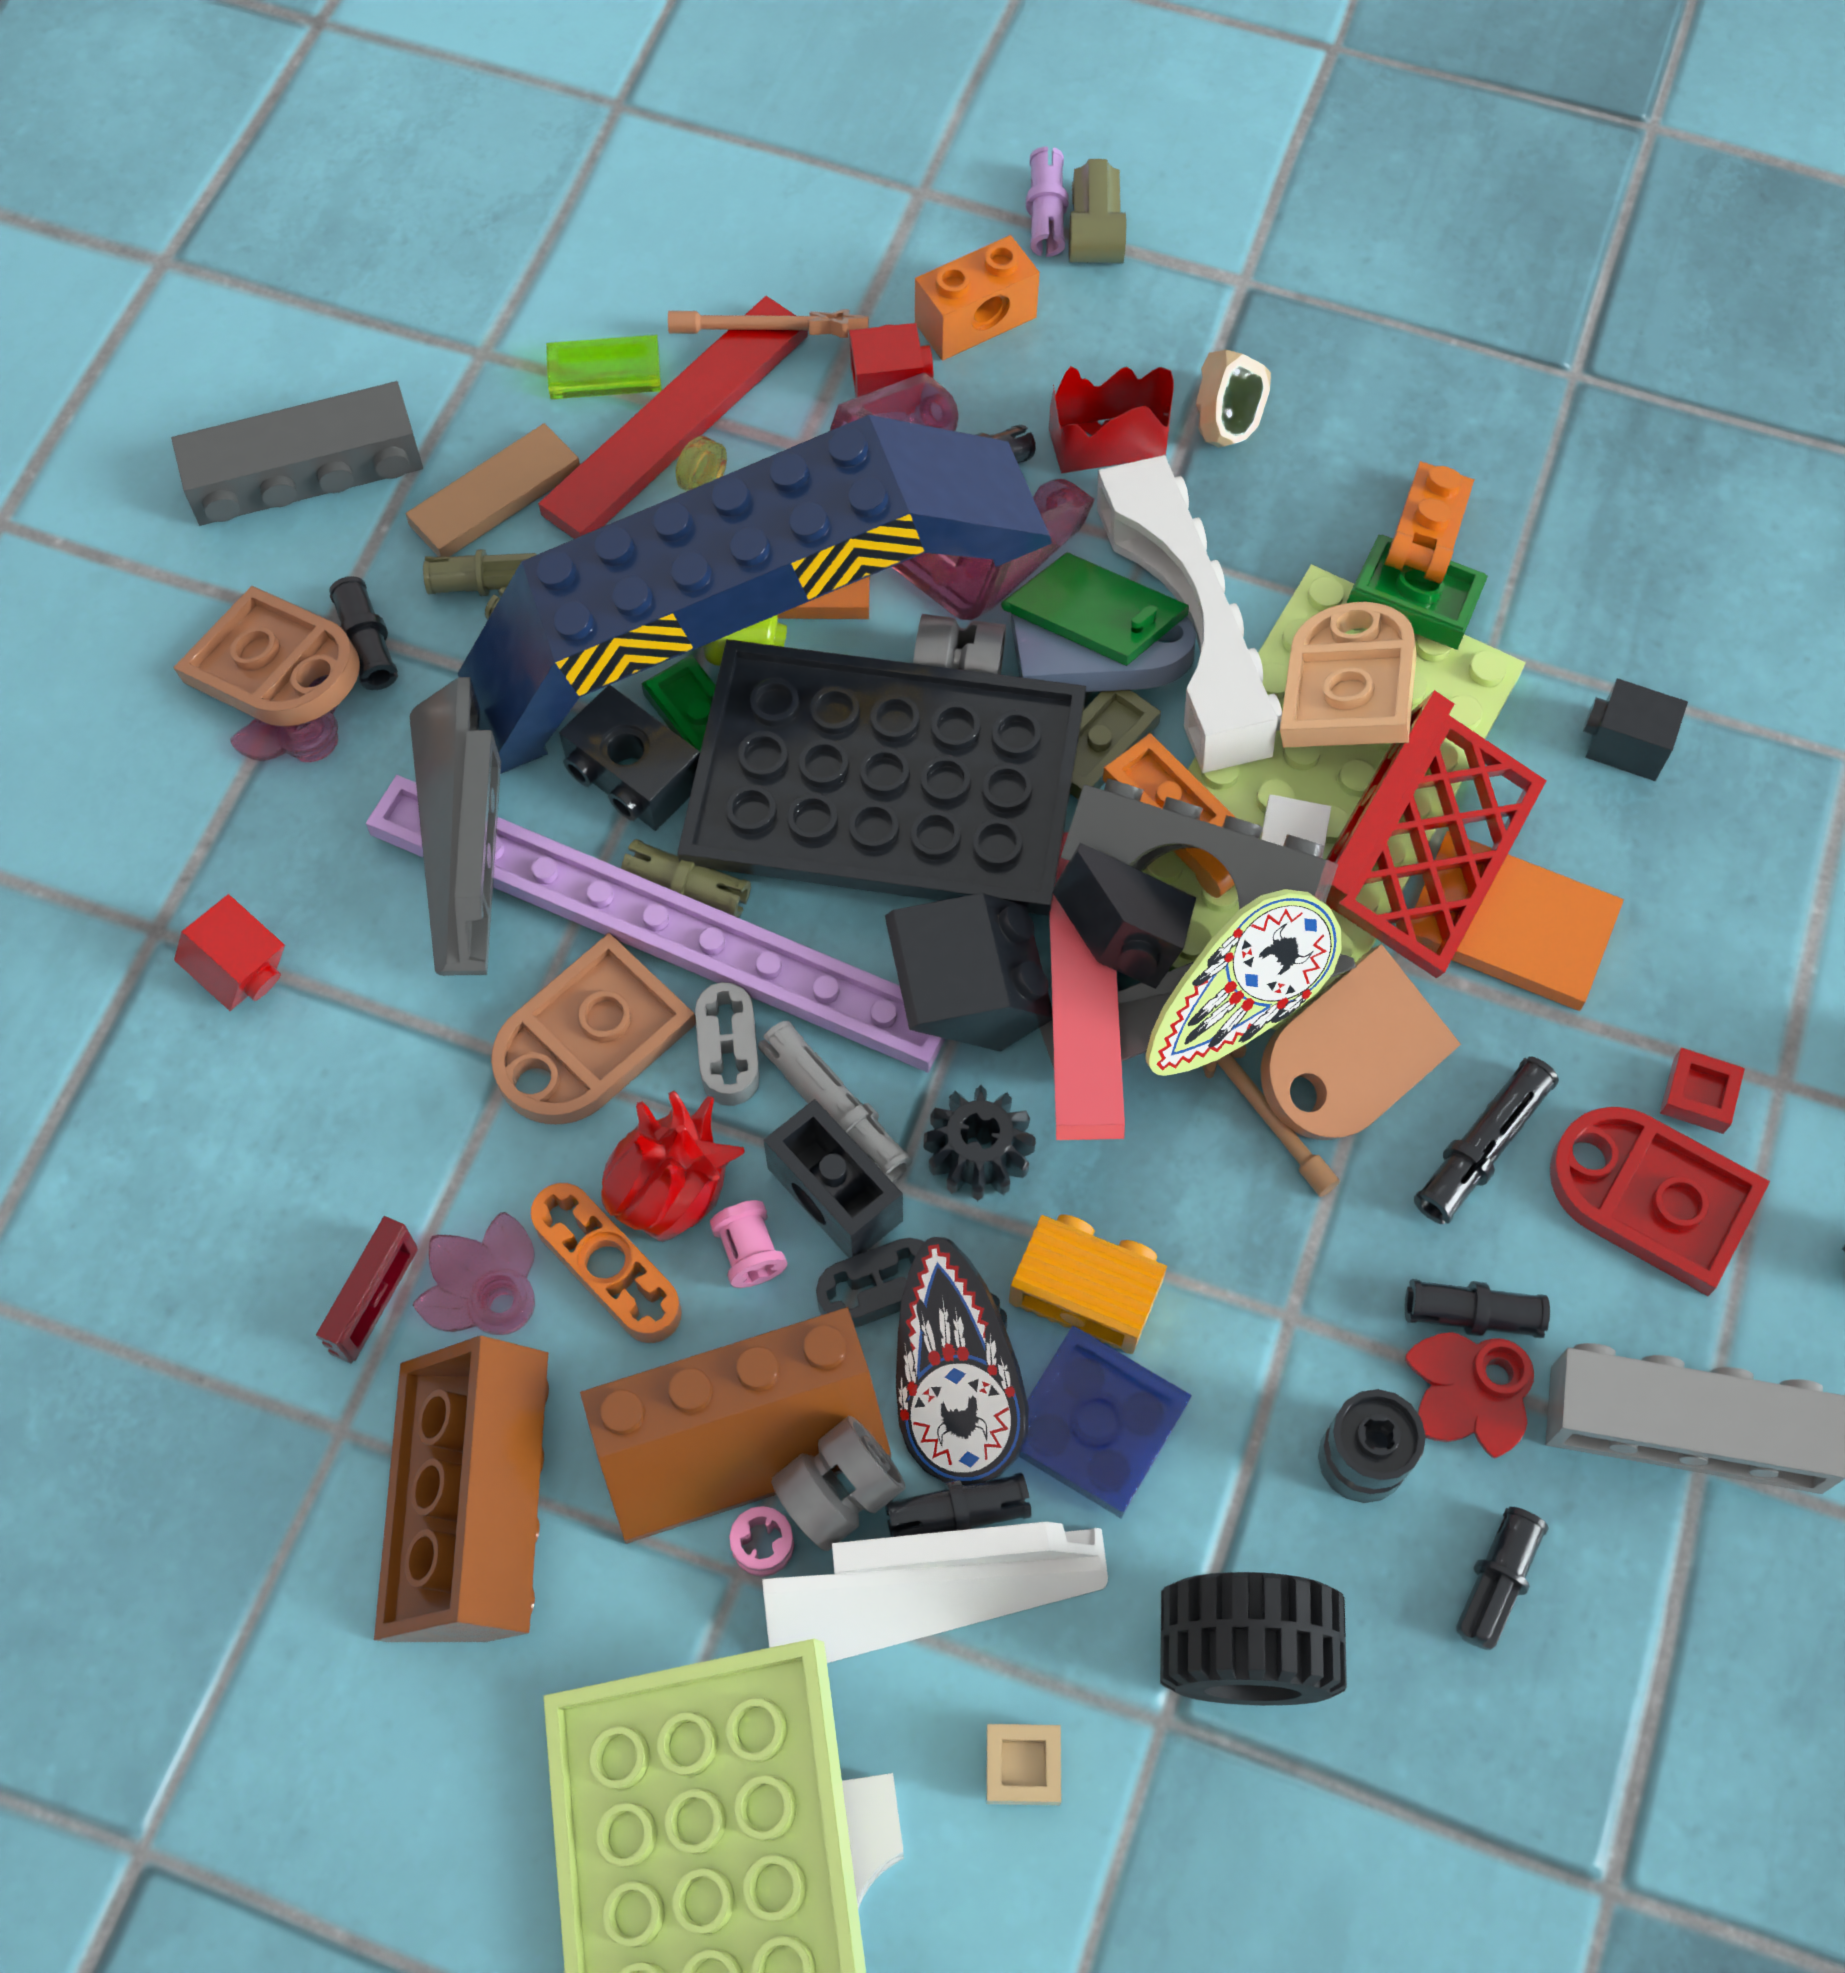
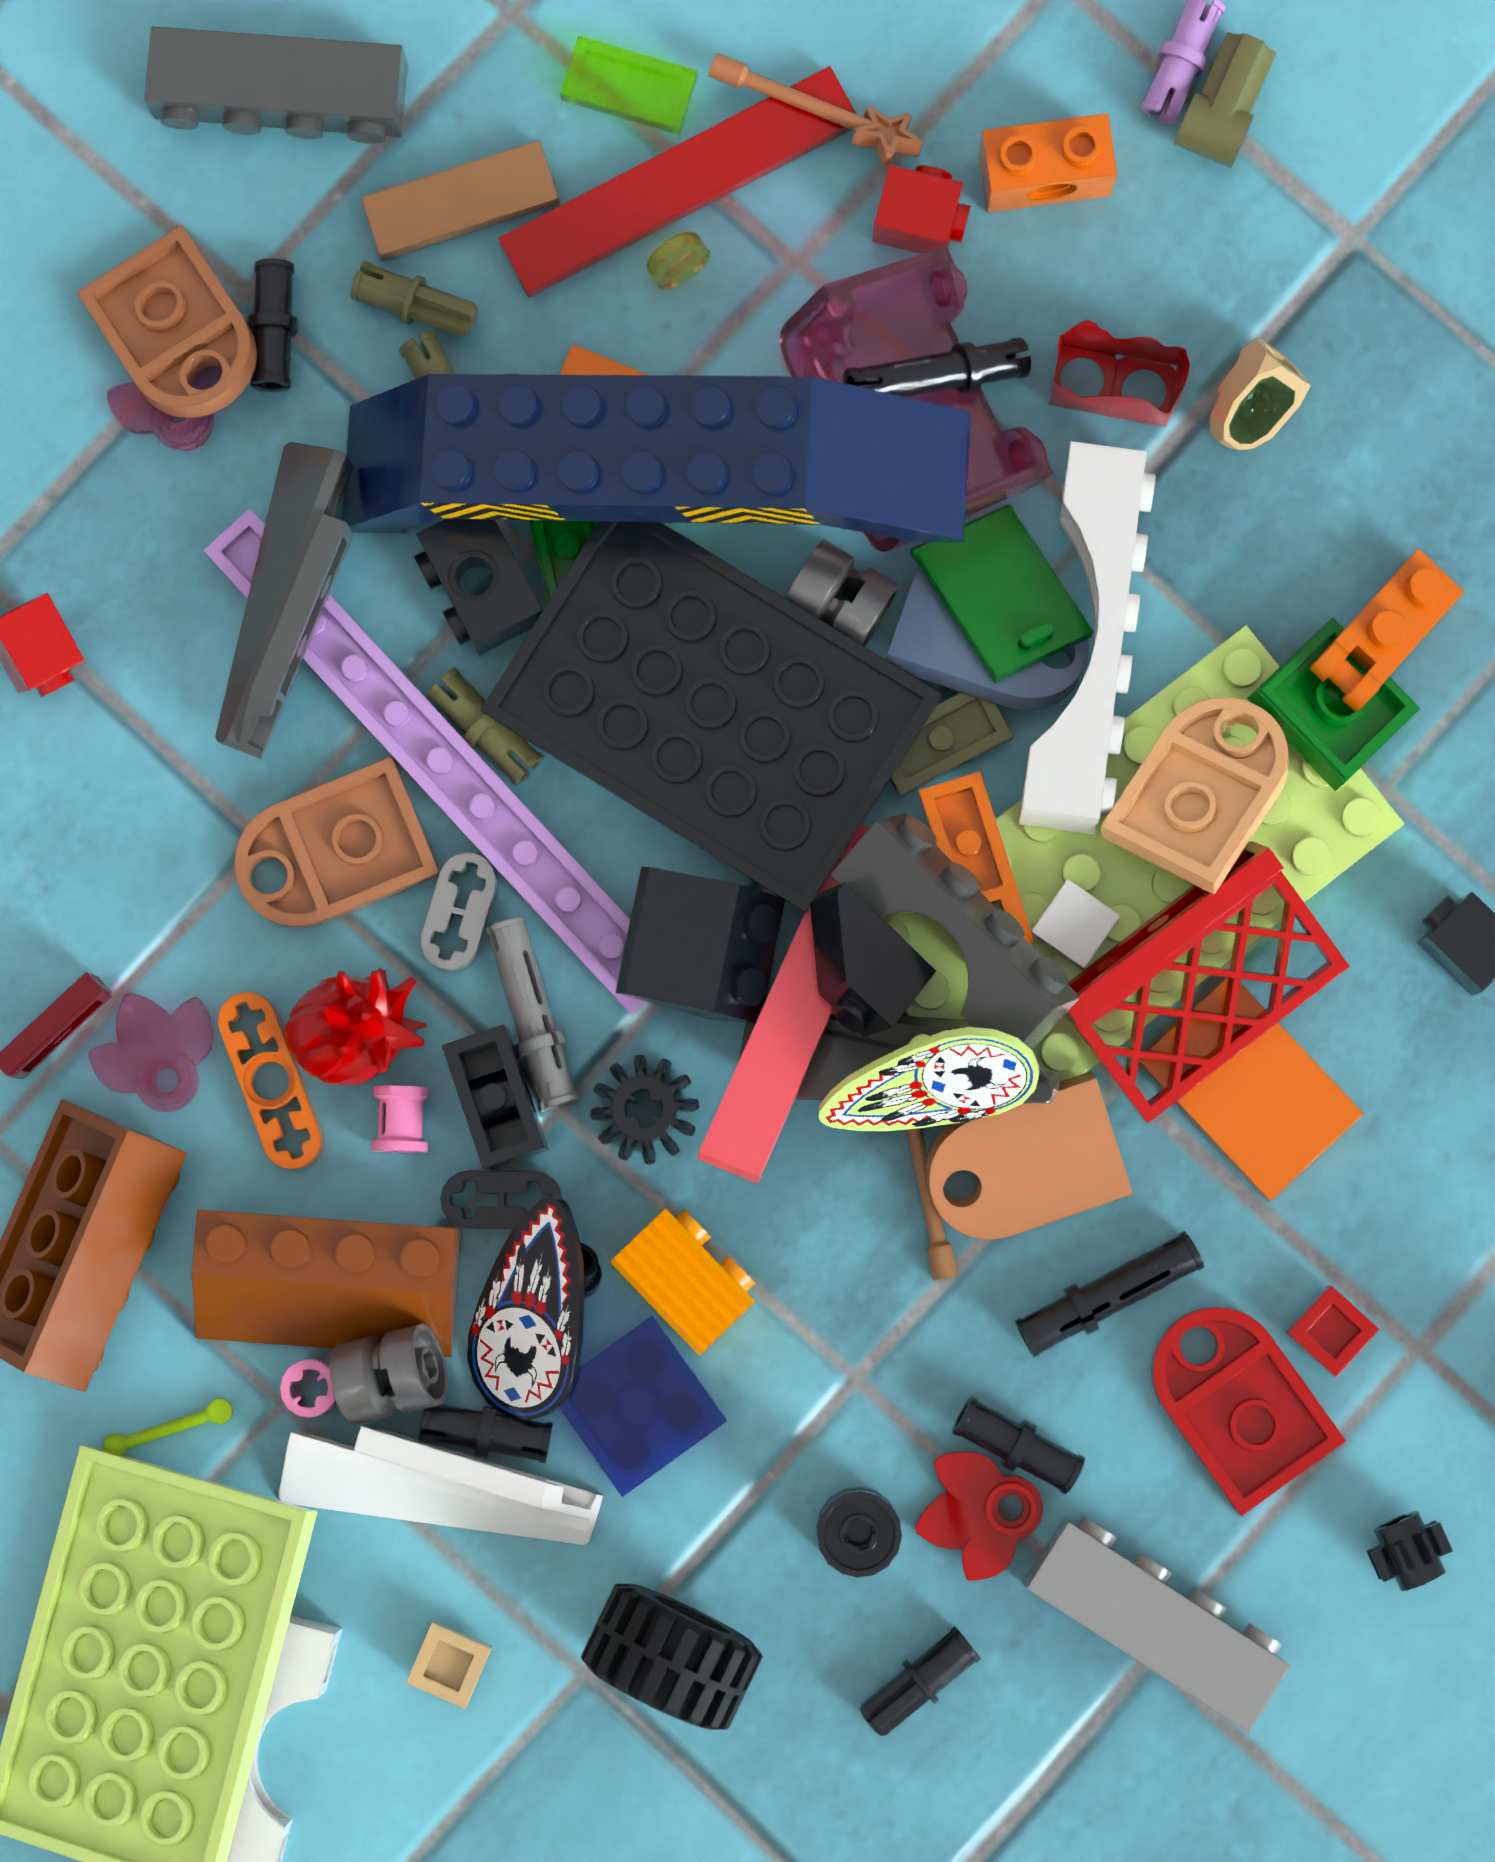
camera: 30 degrees right, 20 degrees up
(675, 1608) = (218, 1412): none -> lime hinge

